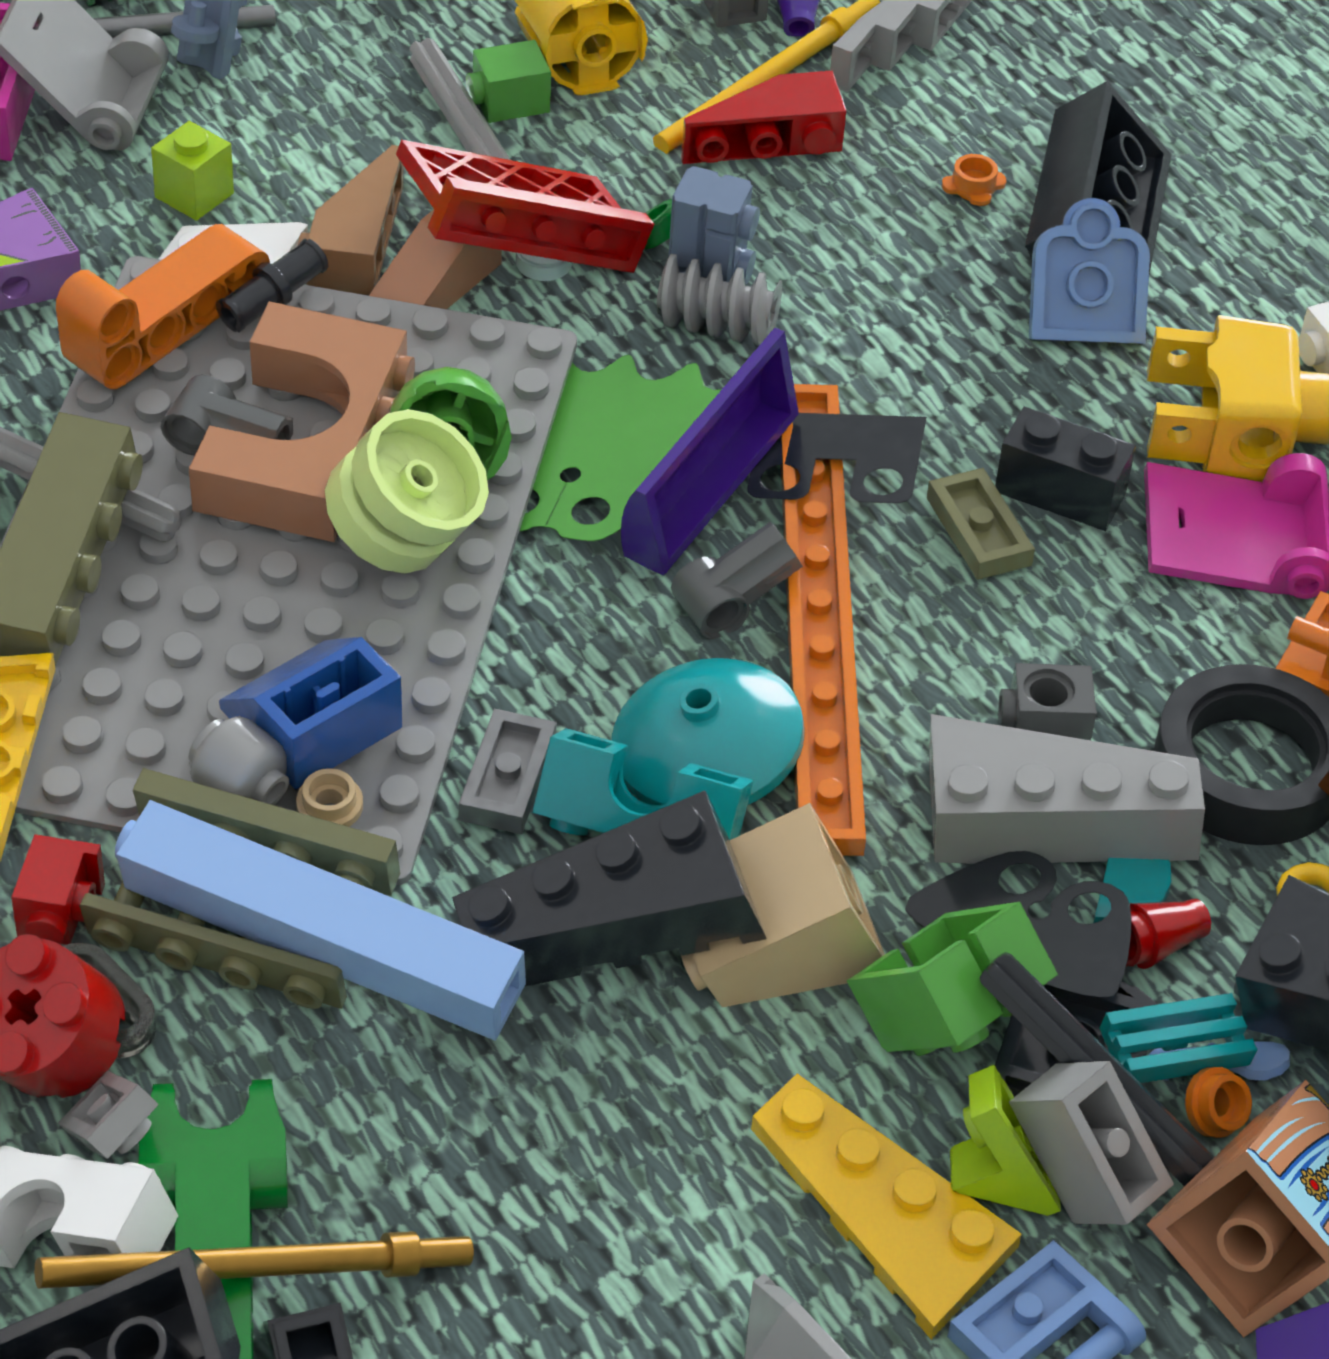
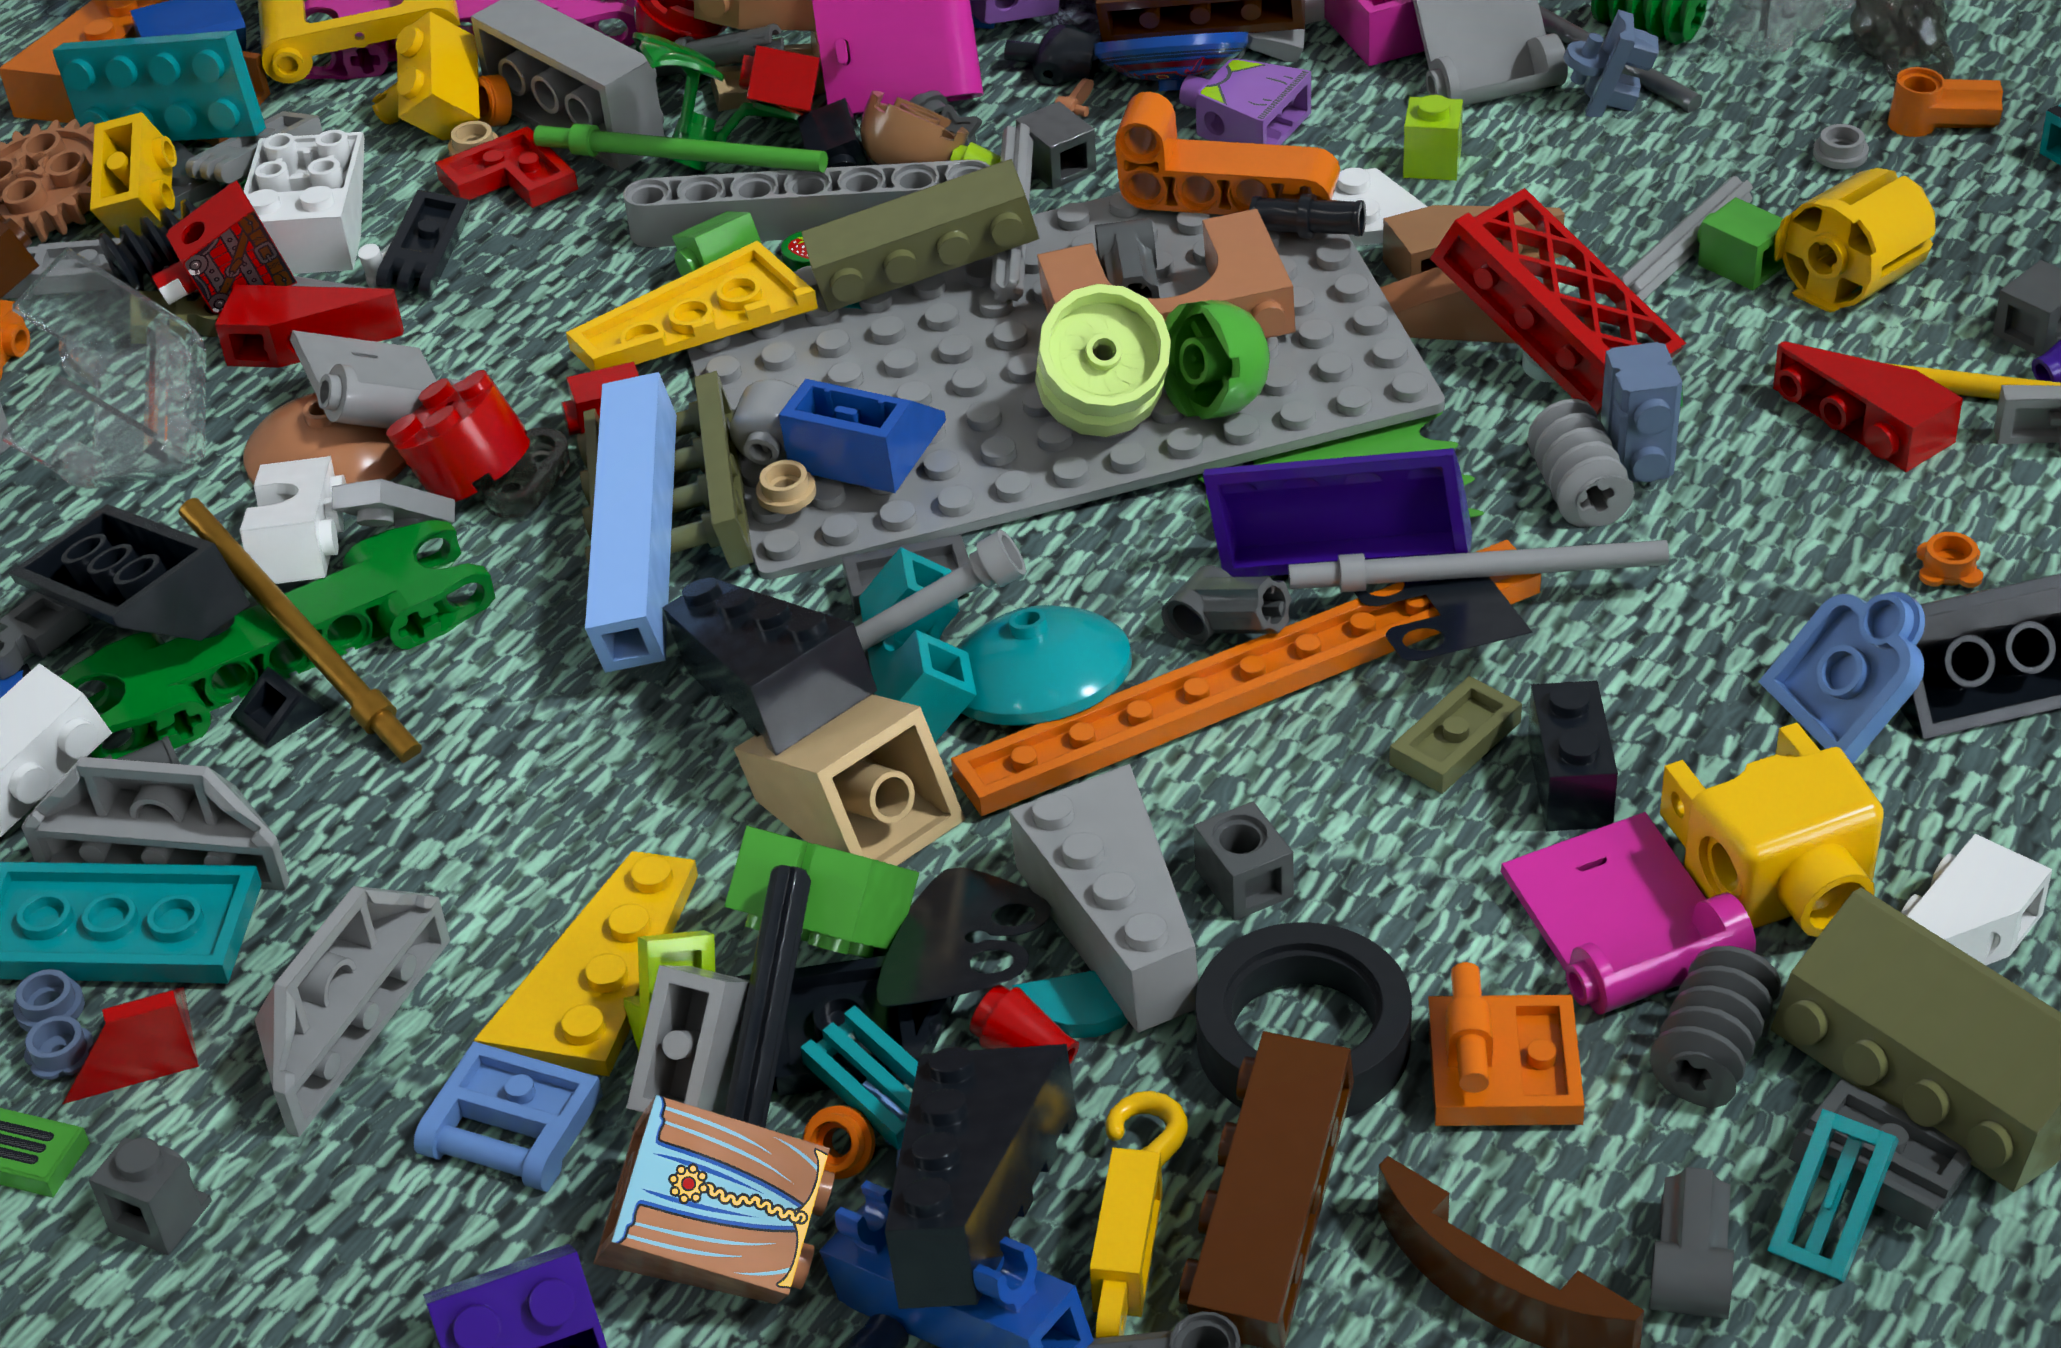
camera: 70 degrees right, 5 degrees down
(668, 671) = (992, 563): none -> light grey piece
(771, 478) = (1354, 572): none -> light grey bar

